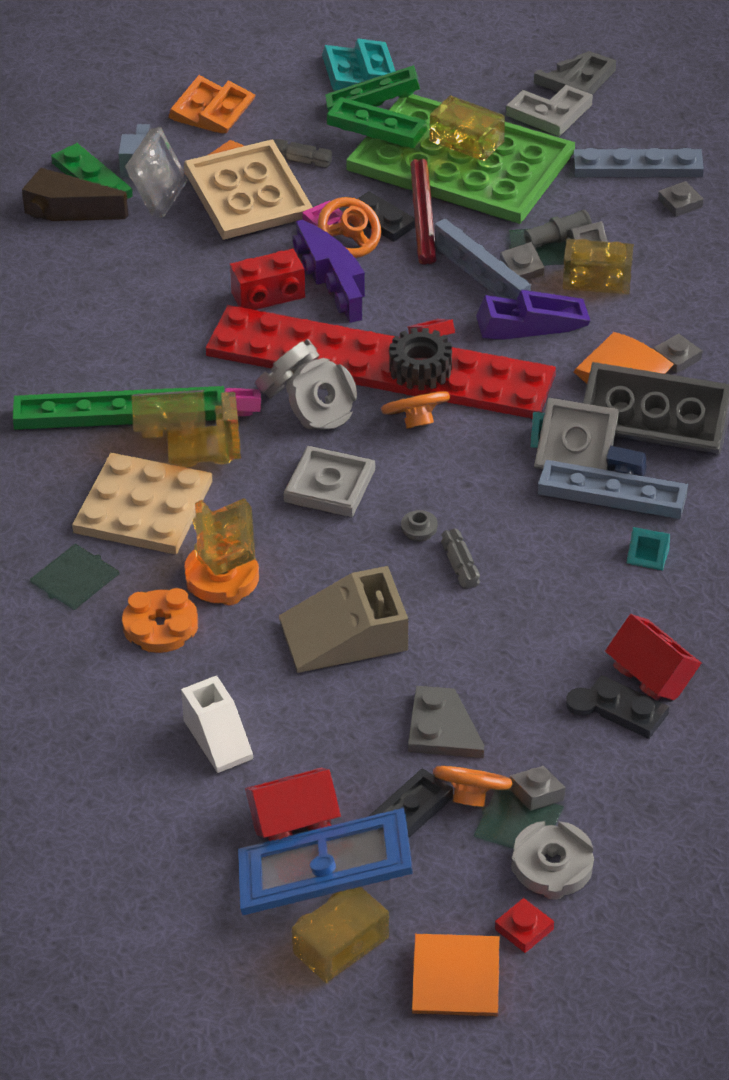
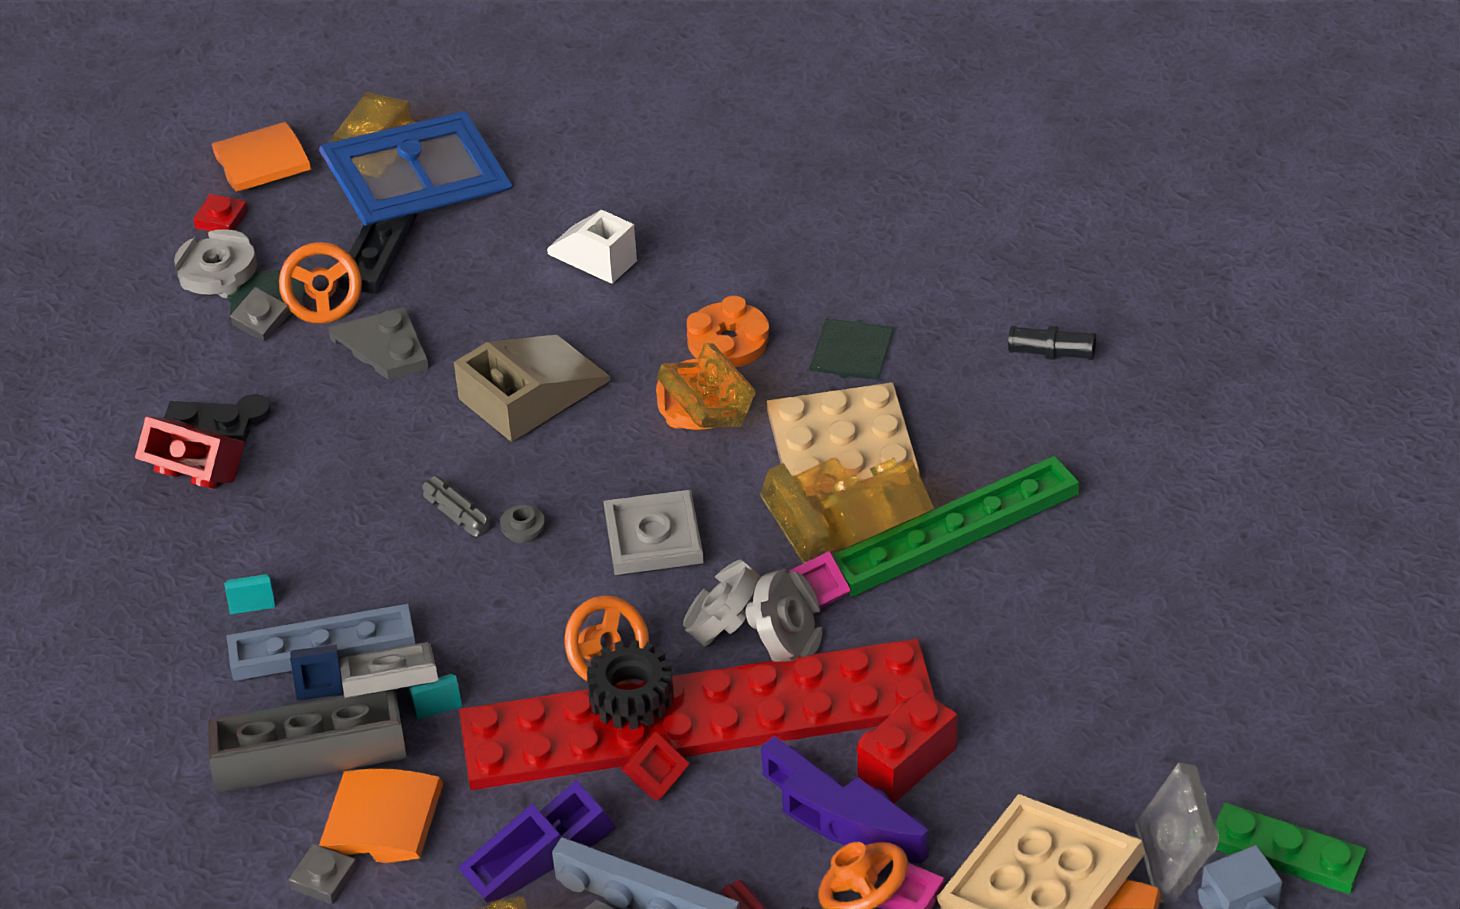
camera: 155 degrees right, 0 degrees up
(68, 198) = (1274, 775): dark brown slope -> none
(293, 803) = (475, 206): red brick -> none

